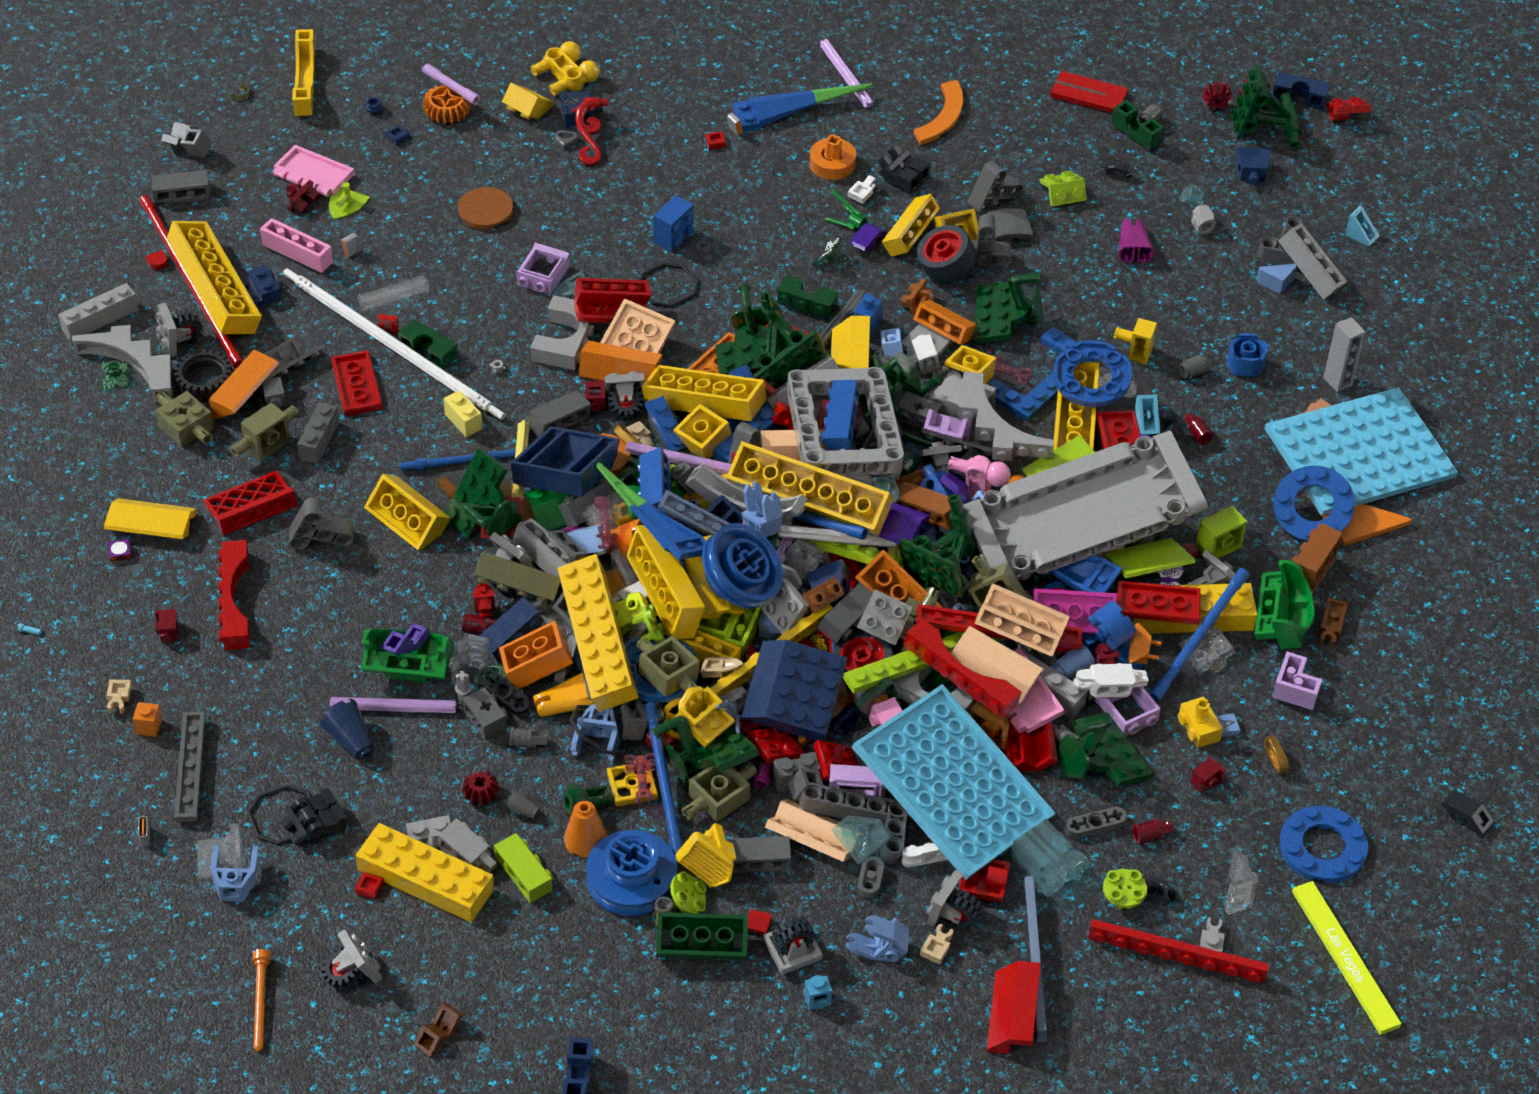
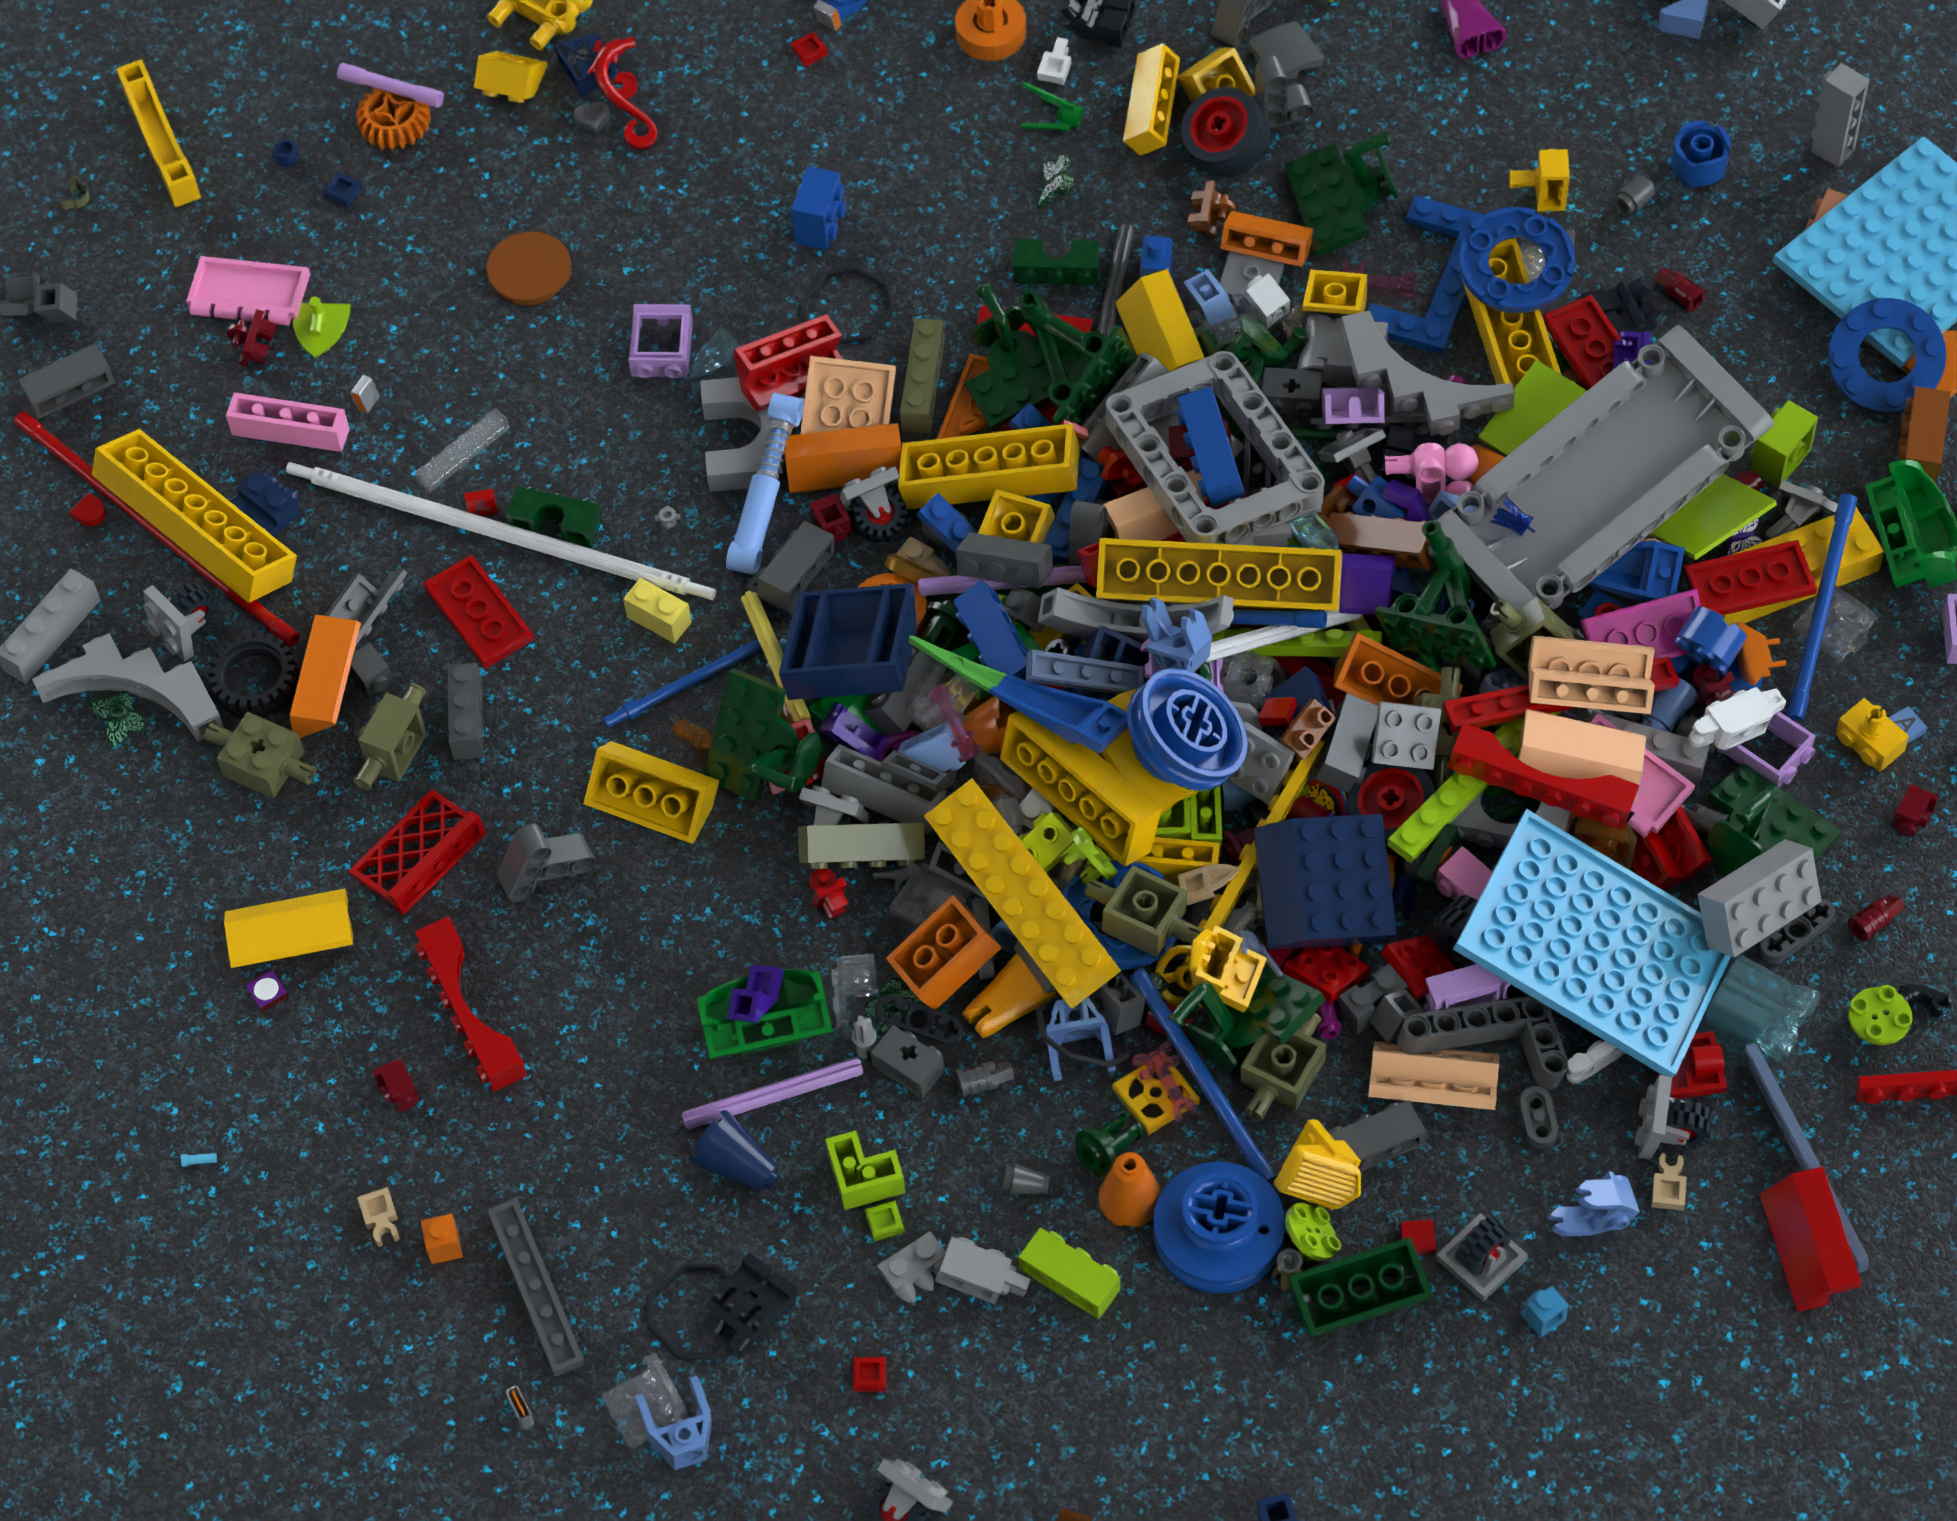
camera: 15 degrees left, 10 degrees up
(421, 768) = (861, 1178): none -> lime brick
(424, 800) = (884, 1221): none -> lime tile
(425, 872) = (940, 1328): yellow brick -> none
(480, 788) = (954, 1165): dark red gear -> none
(484, 623) = (836, 929): dark red hinge -> none
(515, 623) = (889, 920): dark blue brick -> none
(535, 396) = (746, 549): none -> light blue piece
(544, 514) = (852, 732): none -> dark purple hinge
(616, 587) = (1010, 811): none -> dark grey brick
(684, 444) = (1004, 560): none -> dark grey brick
(692, 334) = (922, 376): none -> olive brick
(811, 580) = (1277, 711): none -> red tile
(861, 835) = (1506, 1065): clear light blue plate -> none
(867, 236) = (1097, 137): dark purple slope -> none
(1016, 516) = (1515, 519): none -> clear blue piece
(1074, 789) = (1759, 898): none -> light grey brick
(1147, 414) = (1613, 296): medium azure slope -> none

